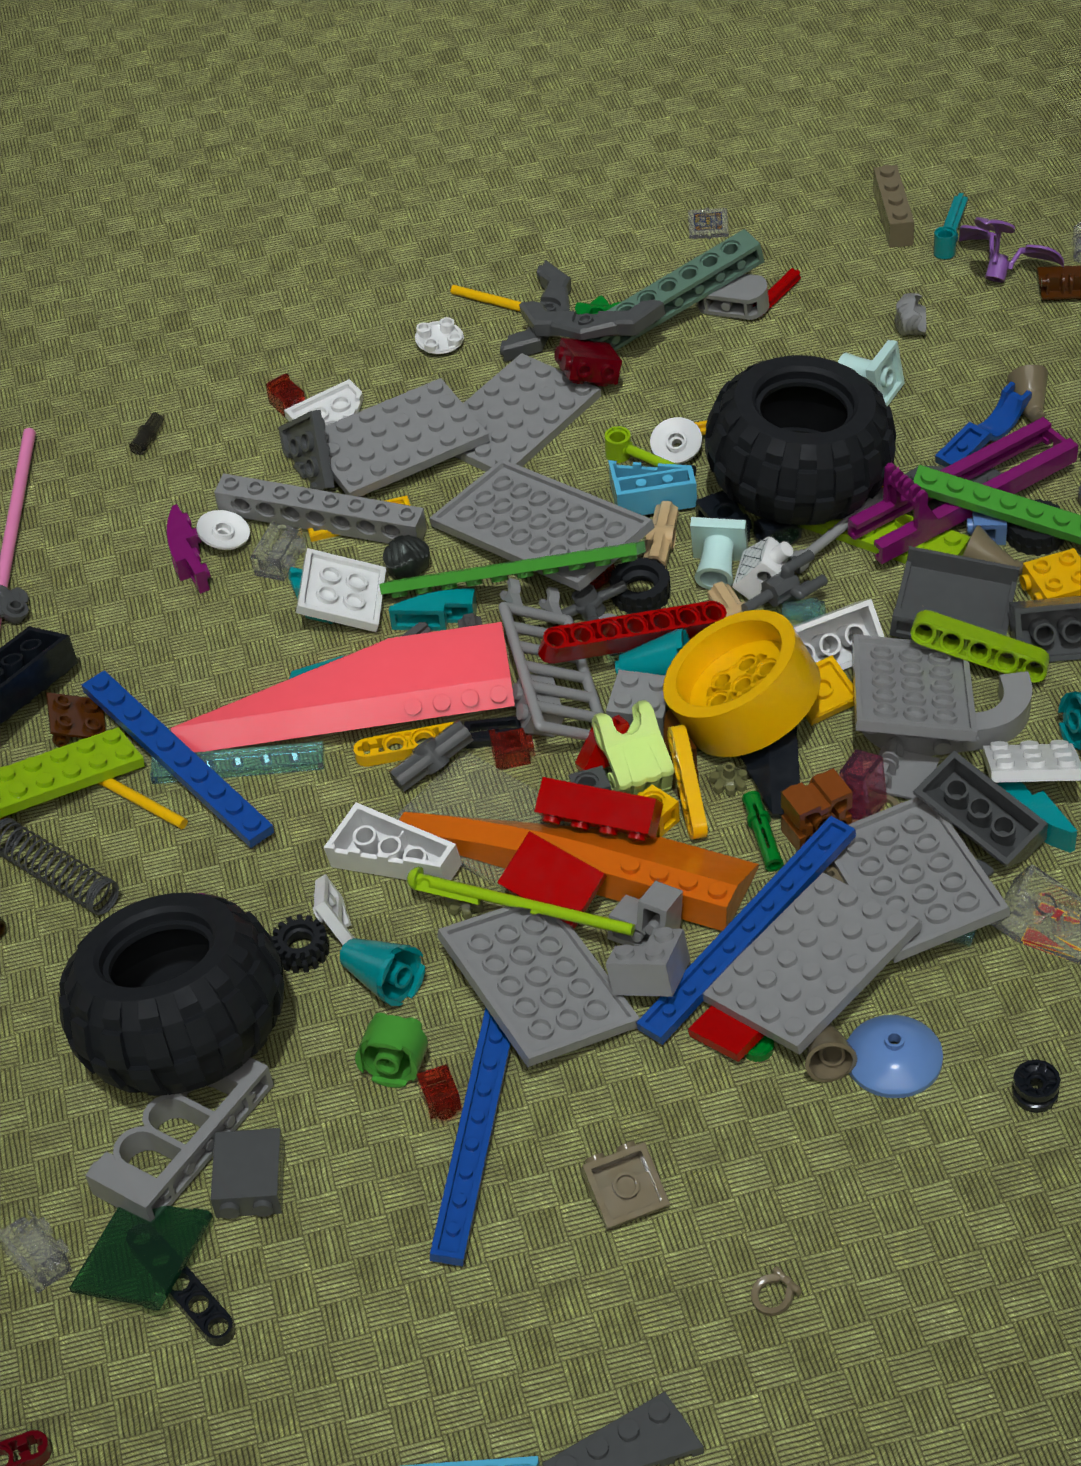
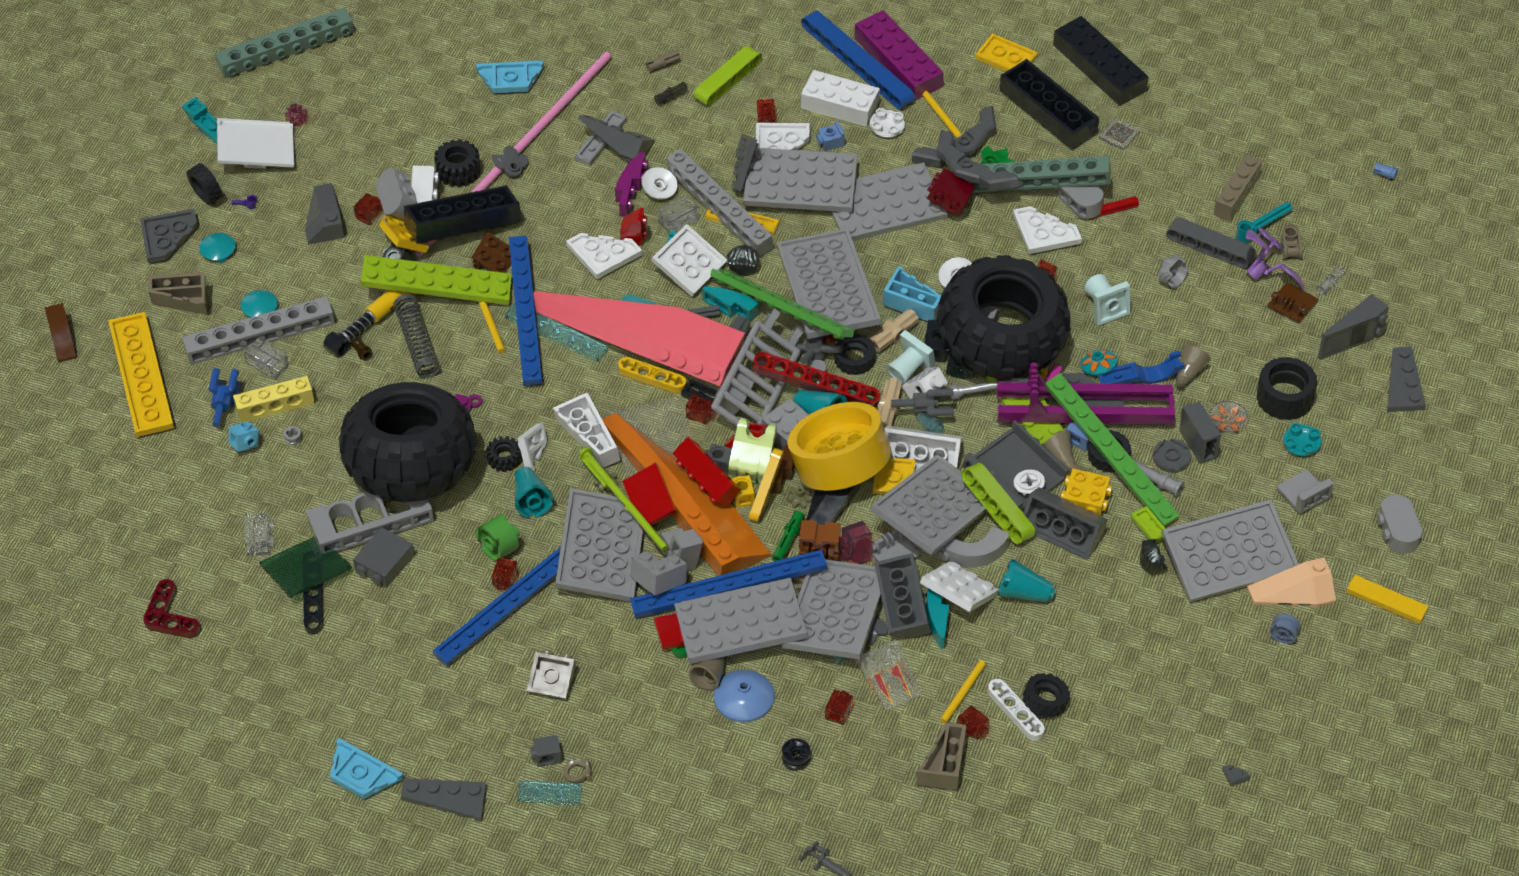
camera: 30 degrees right, 5 degrees up
(99, 523) = (595, 145): none -> light grey tile
(105, 405) = (662, 60): none -> dark tan axle
(141, 507) = (625, 143): none -> dark grey wedge
(202, 381) = (727, 76): none -> lime beam
(217, 643) = (603, 253): none -> white plate
(236, 591) = (634, 227): none -> red slope
(344, 292) = (858, 59): none -> blue beam
(361, 337) = (840, 98): none -> white brick
(388, 264) = (898, 53): none -> magenta brick
(388, 380) = (831, 137): none -> medium blue brick
(430, 755) = (653, 388): dark grey piece -> none
(508, 211) = (1003, 53): none -> yellow tile
(608, 227) = (1049, 103): none -> black brick
(620, 164) = (1100, 60): none -> black brick
(620, 448) = (923, 260): lime piece -> none
(711, 1291) = (546, 751): none -> dark grey brick
(726, 351) = (1044, 231): none -> white plate
(763, 1348) = (549, 792): none -> clear light blue tile
(920, 270) = (1211, 242): none -> dark grey beam
(926, 445) = (1099, 362): none -> teal dish
(987, 598) = (1034, 476): none -> white gear
(1007, 239) = (1291, 242): none -> dark tan piece
(1022, 120) = (1386, 171): none -> medium blue pin
(1030, 993) = (839, 707): none -> clear red brick

